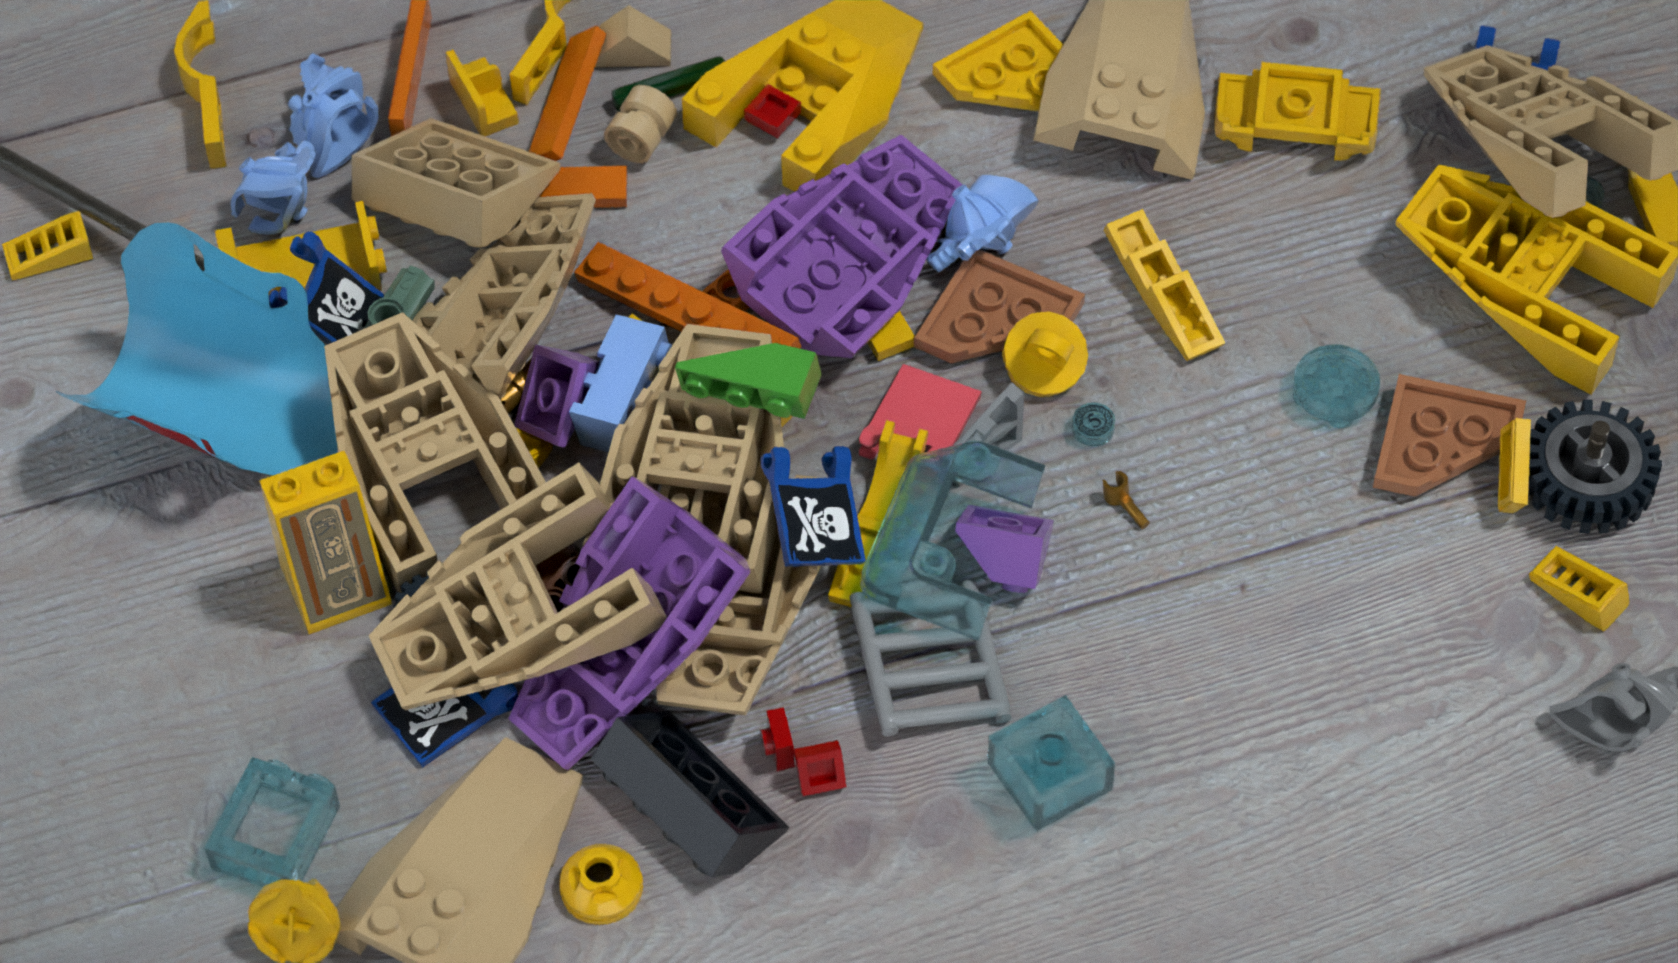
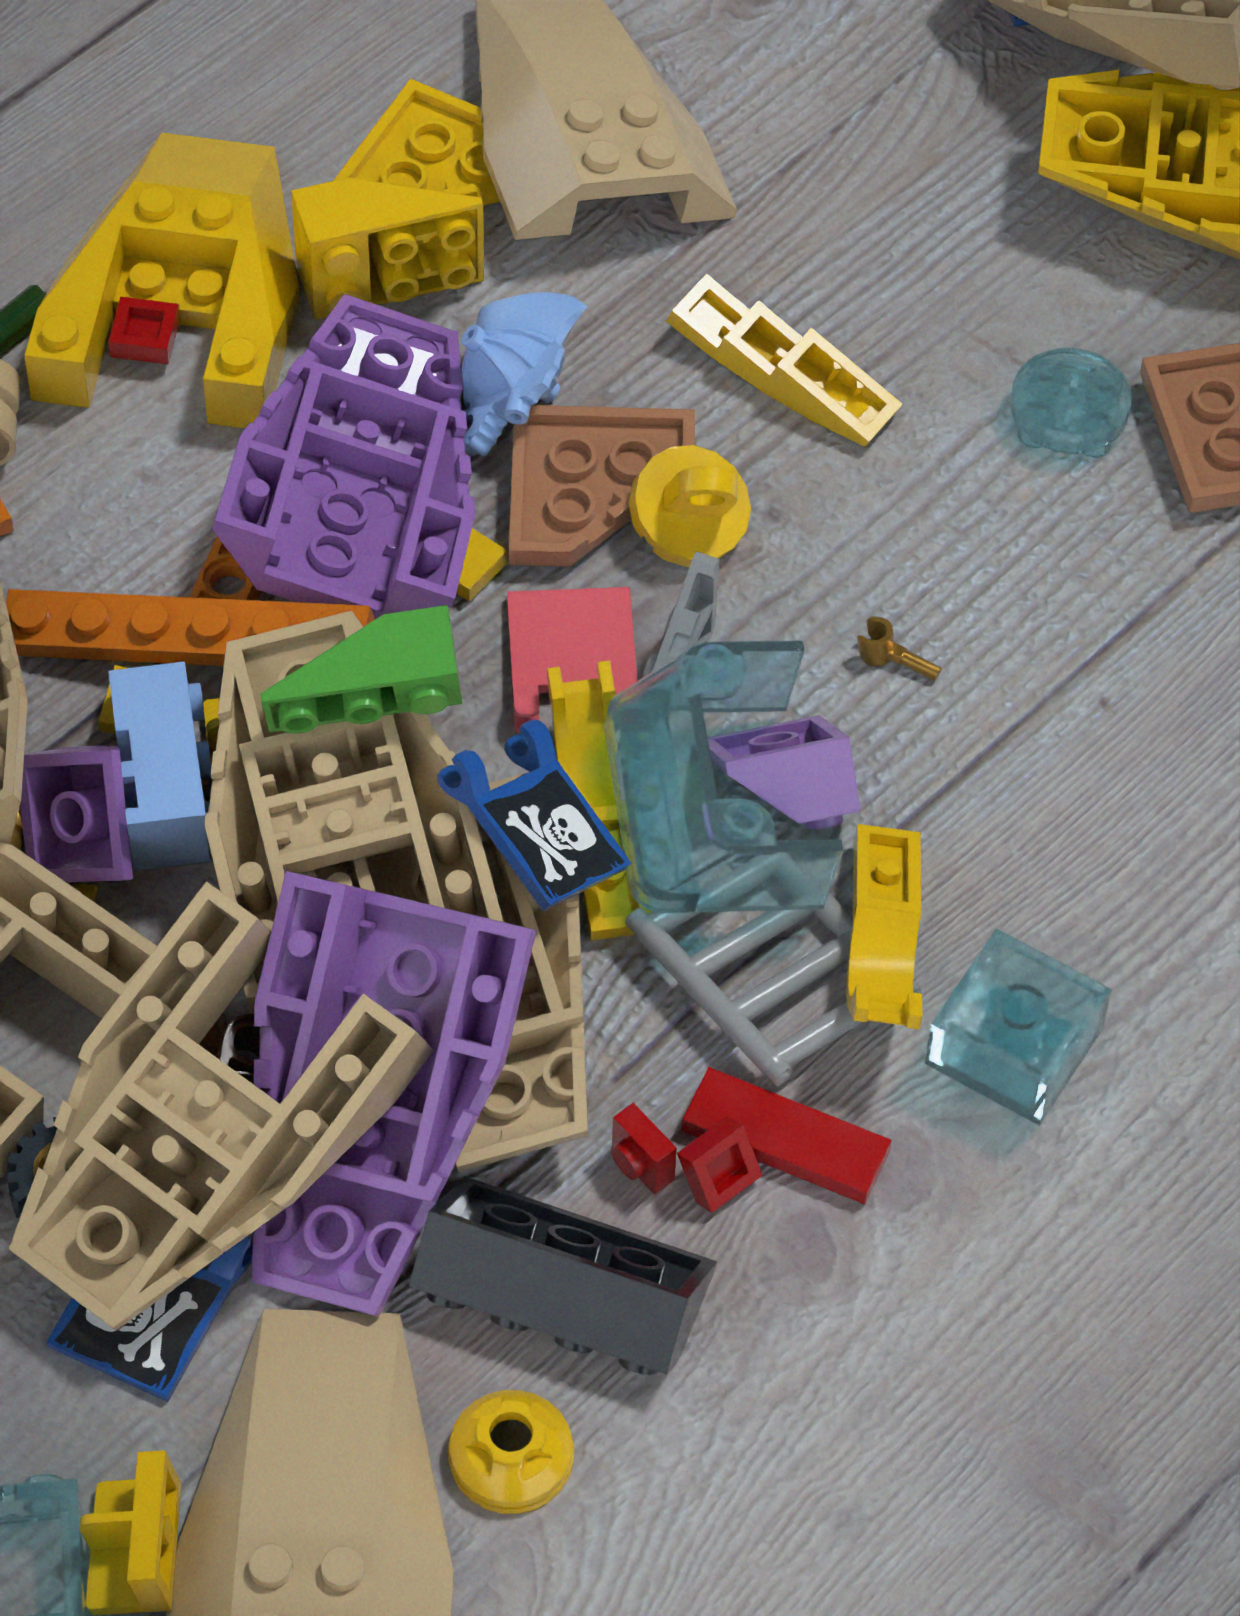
camera: 30 degrees left, 0 degrees up
(354, 835) = (134, 1539): none -> yellow panel
(878, 770) = (792, 1135): none -> red tile
(945, 110) = (384, 241): none -> yellow slope
(1005, 667) = (885, 926): none -> yellow piece
(1093, 424) = (798, 572): clear light blue tile -> none
(1298, 107) = (811, 79): yellow piece -> none

